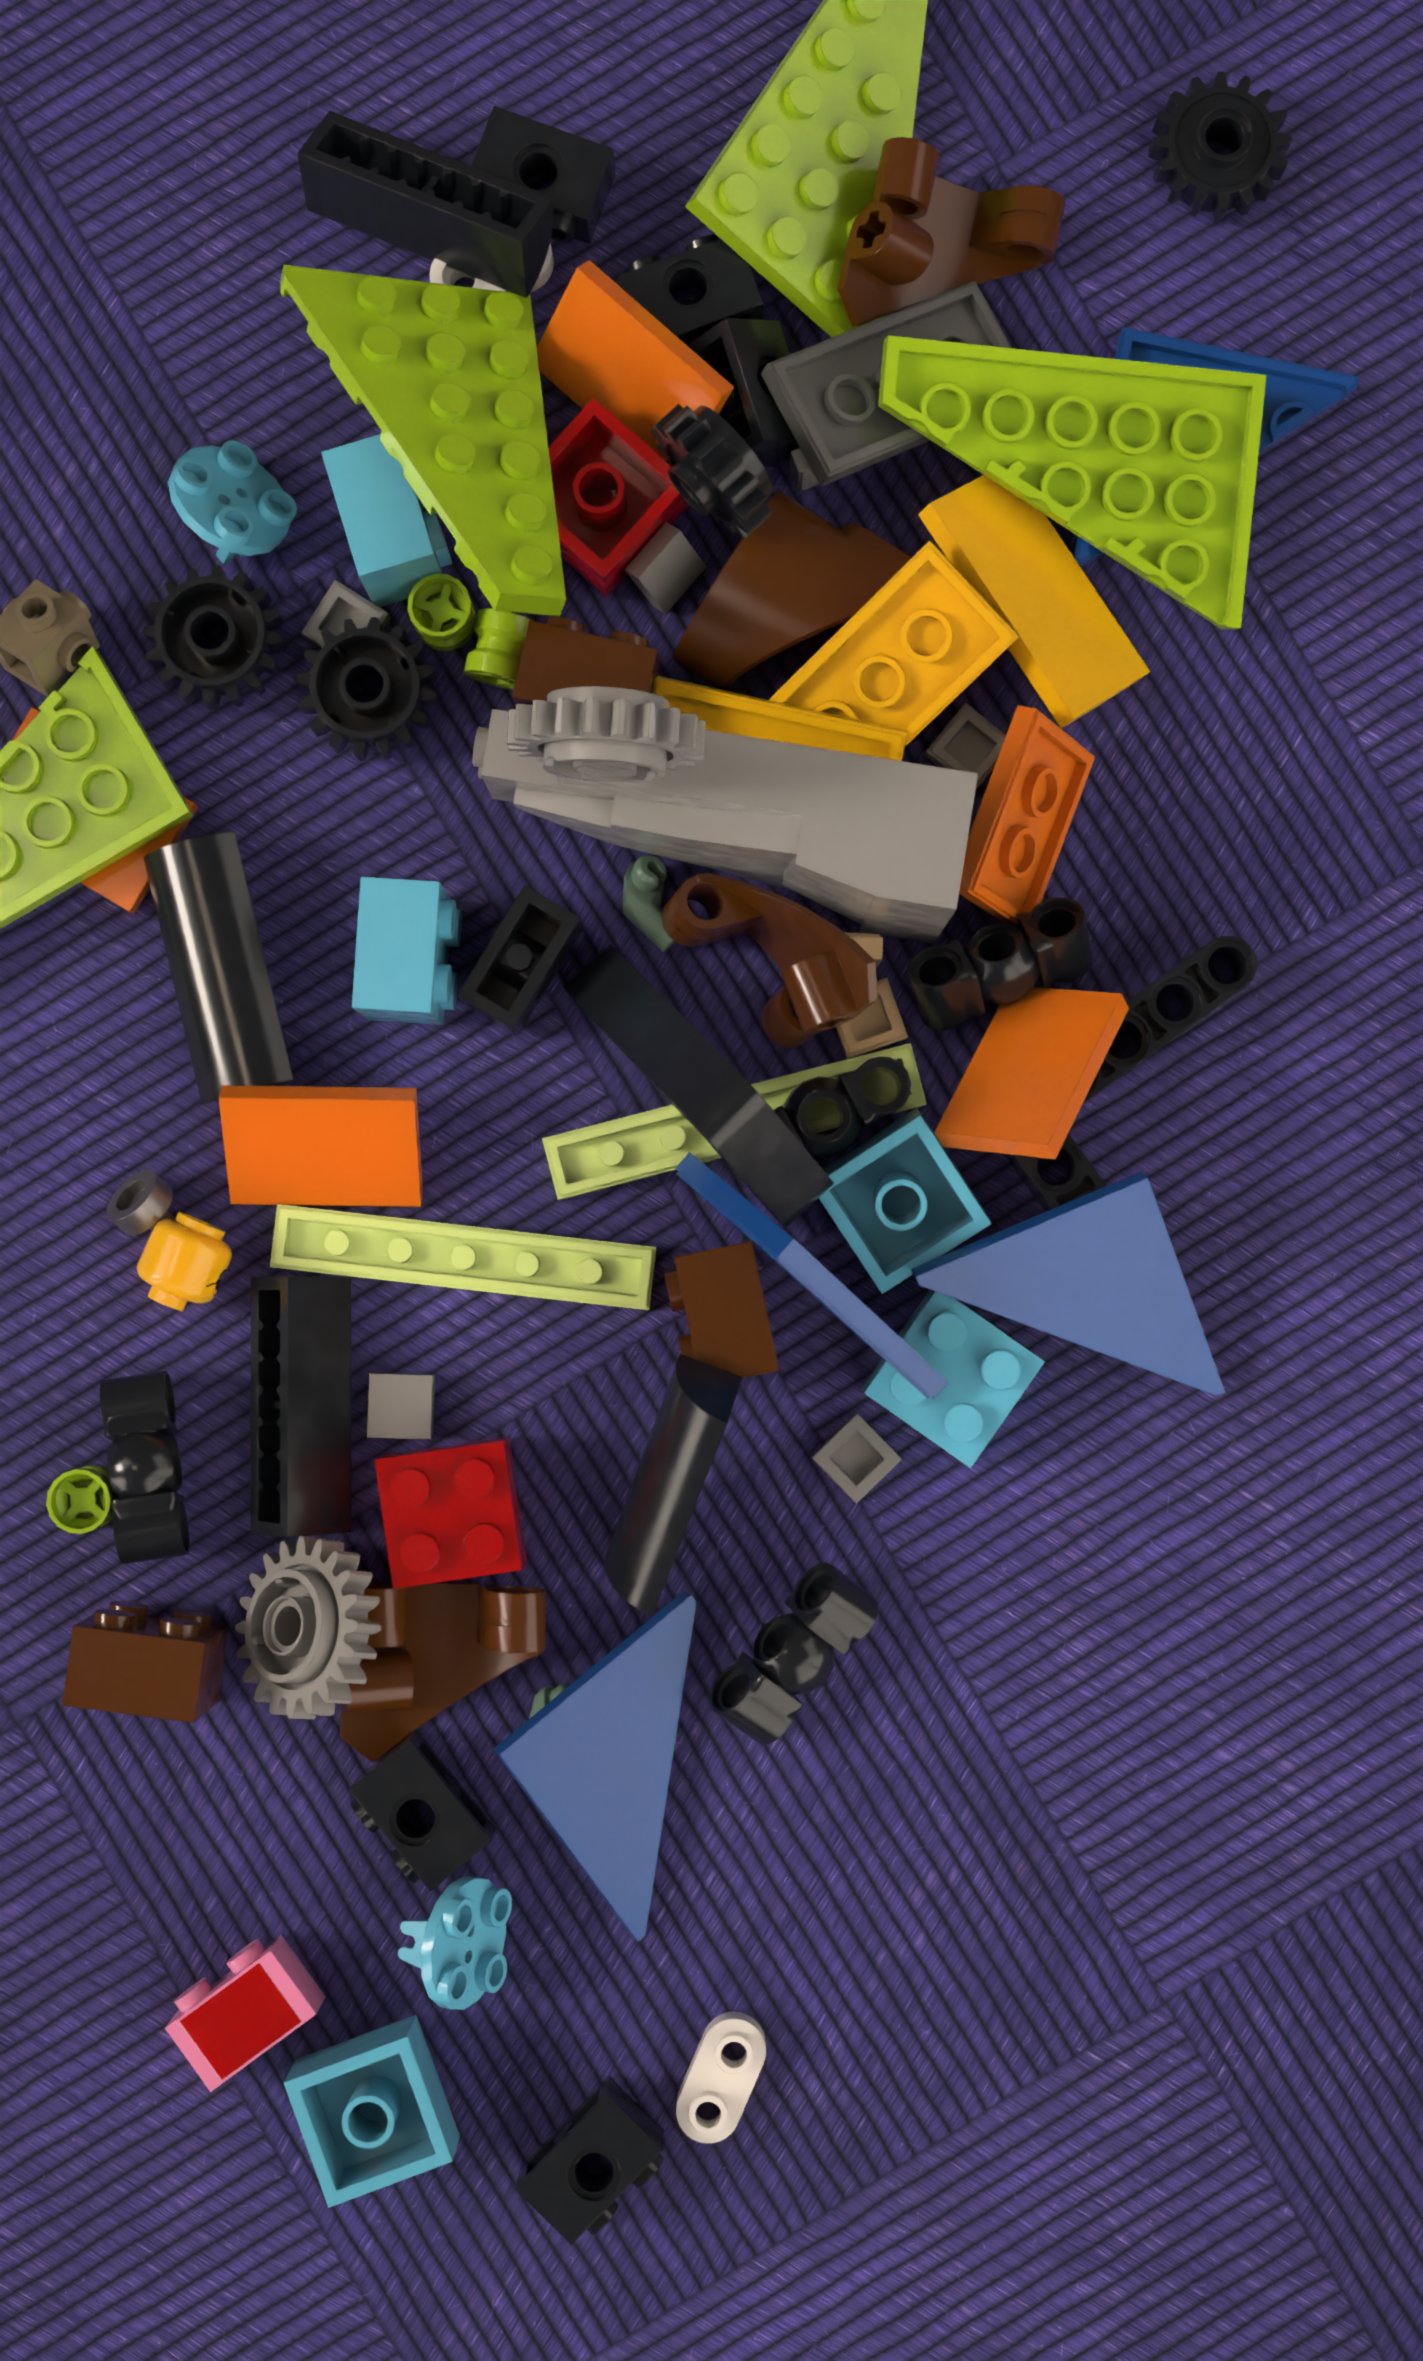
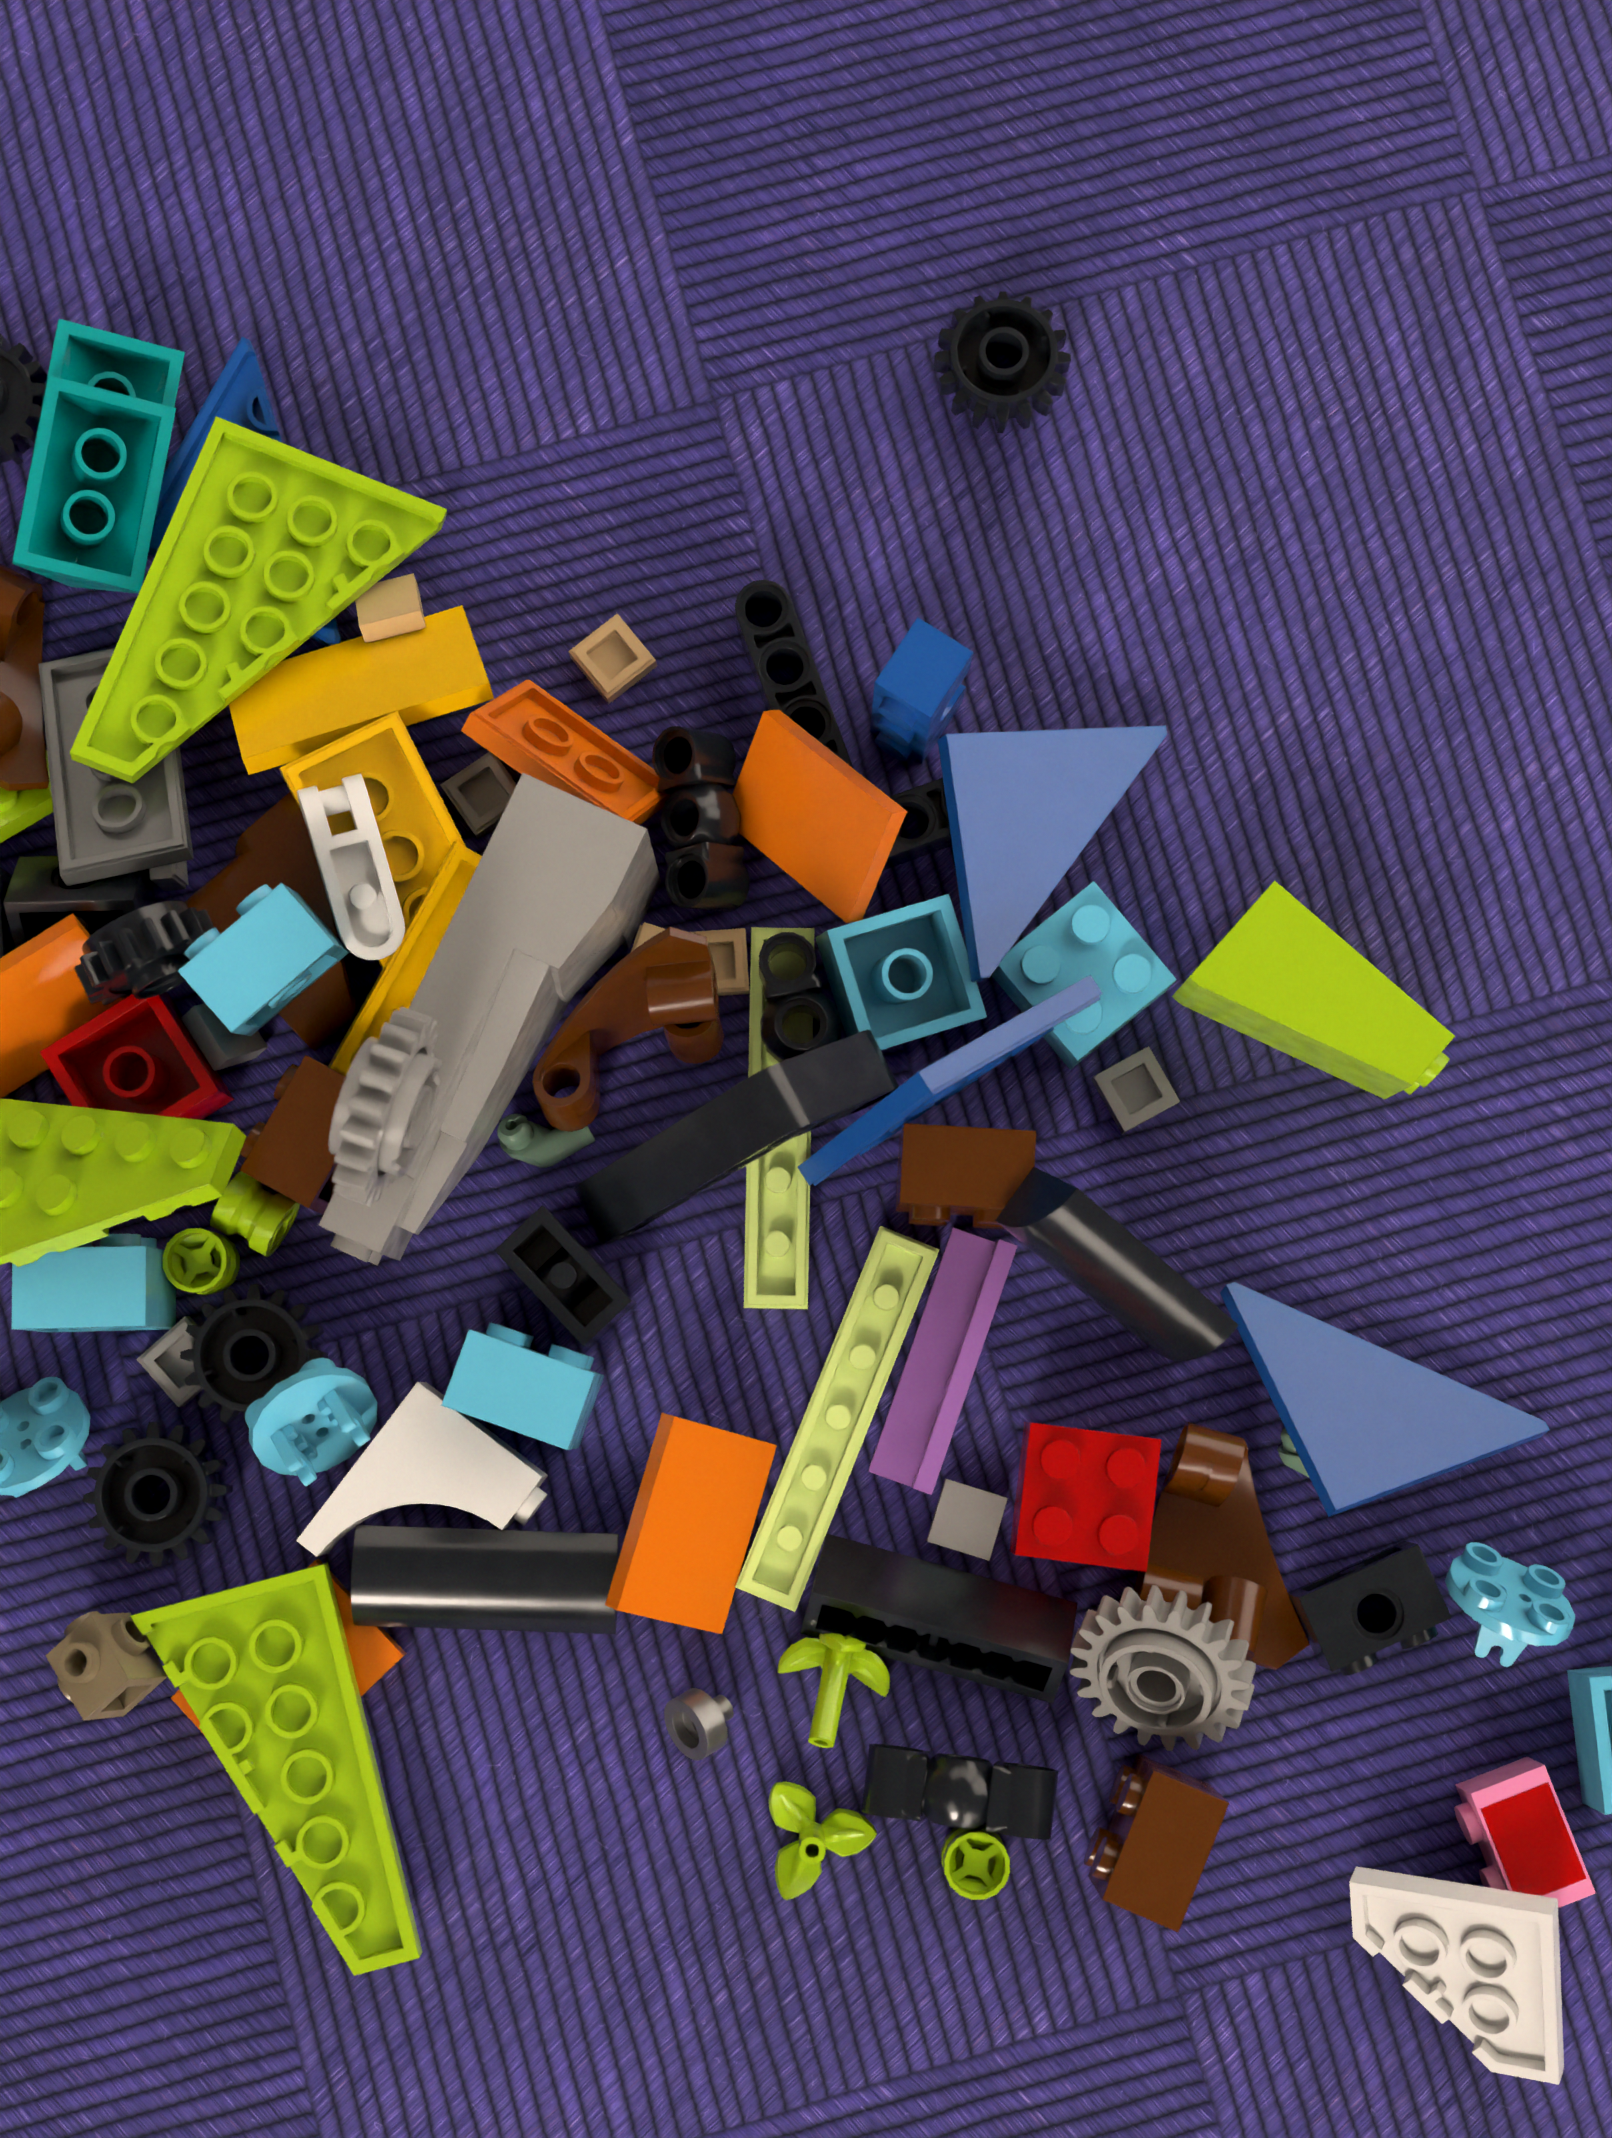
camera: 75 degrees left, 5 degrees down
(42, 1336) = (799, 1862): none -> lime plant
(119, 1990) = (1473, 1959): none -> white plate
(184, 1261) = (766, 1695): yellow head -> none
(233, 1319) = (837, 1658): none -> lime plant
(312, 885) = (430, 1458): none -> white arch
(320, 761) = (312, 1420): none -> medium azure plate
(543, 1341) = (942, 1360): none -> medium lavender fence
(736, 580) = (261, 958): none -> medium azure brick
(793, 1653) = (1309, 1200): black piece -> none
(849, 643) = (354, 869): none -> white plate
(990, 1608) = (1316, 999): none -> lime slope
(1125, 603) = (390, 609): none -> tan tile
(1139, 833) = (613, 658): none -> tan tile
(1182, 1139) = (918, 692): none -> blue arch
(1193, 273) = (98, 459): none -> teal slope

